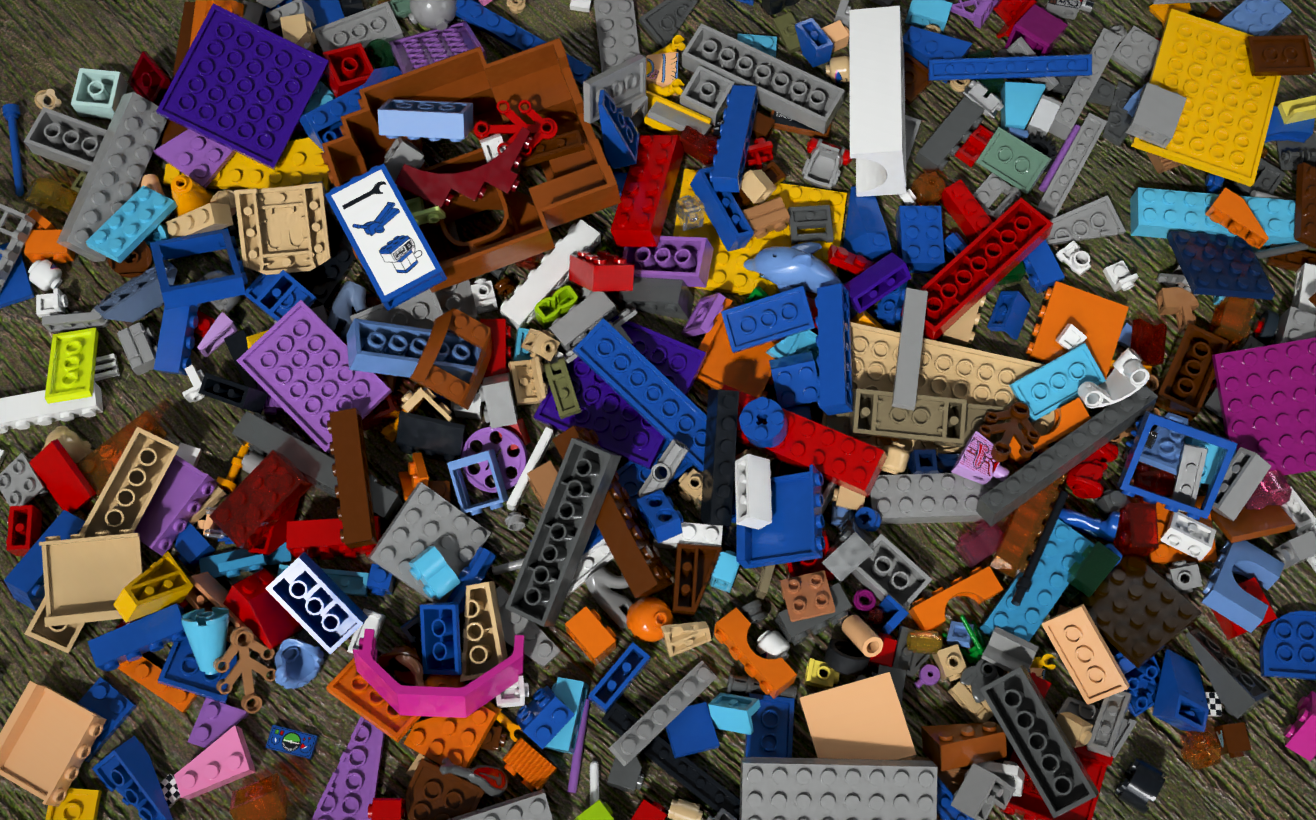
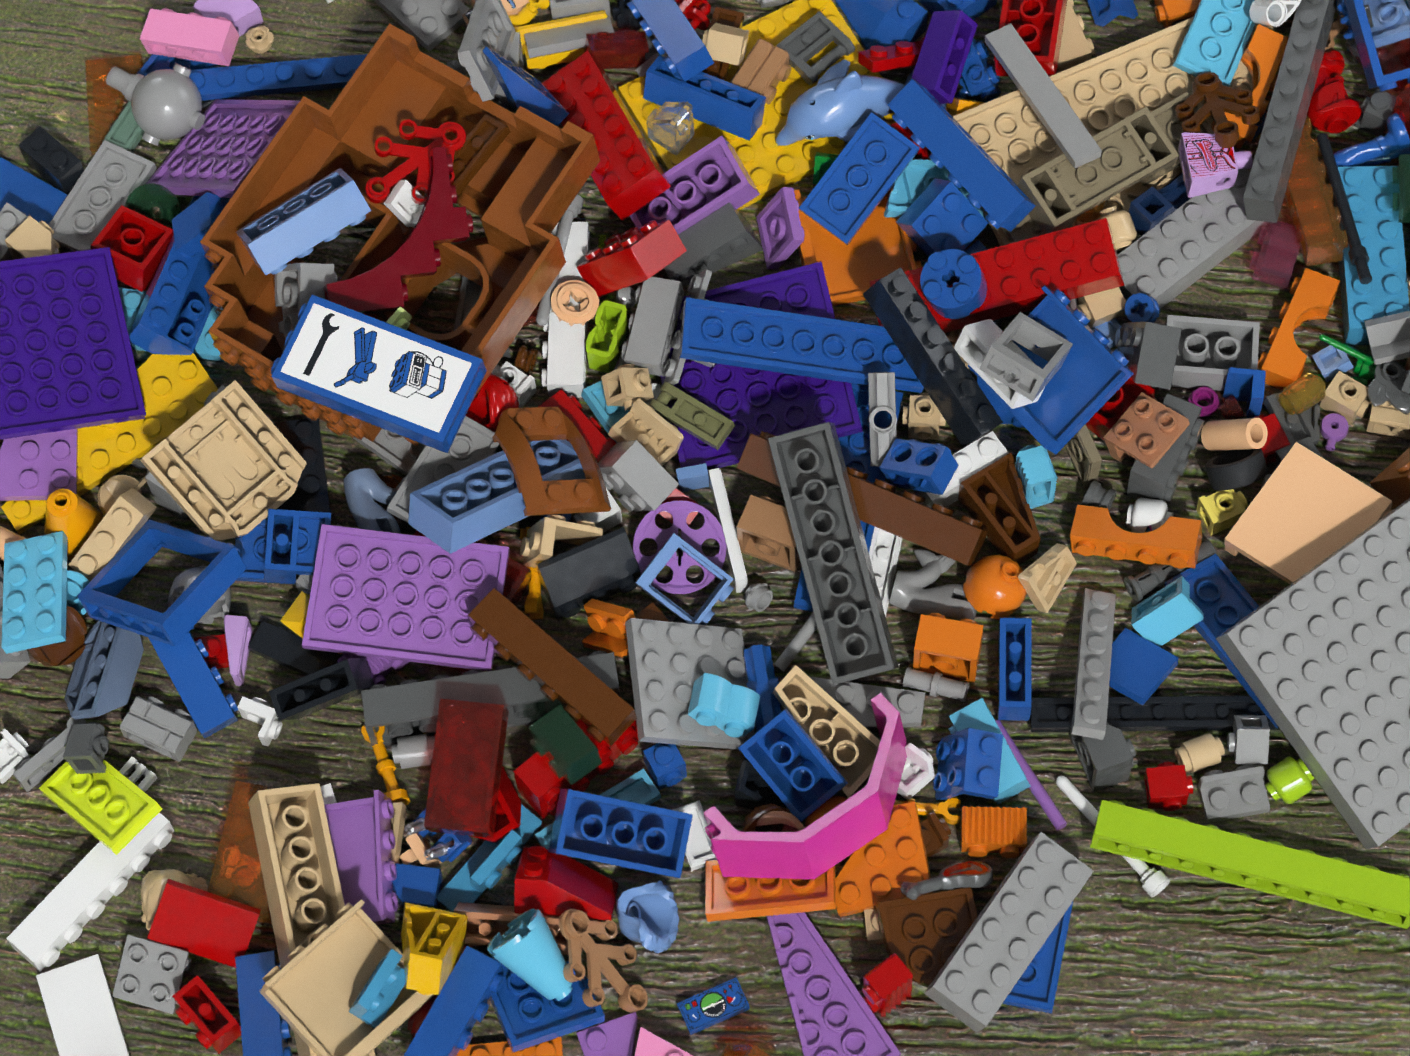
camera: 30 degrees left, 5 degrees down
(88, 331) = (87, 748): none -> dark grey brick
(104, 594) = (380, 990): none -> dark azure bracket
(319, 529) = (564, 745): none -> clear green brick
(461, 298) = (491, 401): none -> red piece
(536, 423) = (692, 477): none -> medium blue tile
(546, 266) = (580, 292): none -> light nougat gear
(570, 650) = (936, 684): none -> light grey pin
(595, 219) = (563, 235): none -> light grey piece
(753, 515) = (1029, 377): none -> light grey window

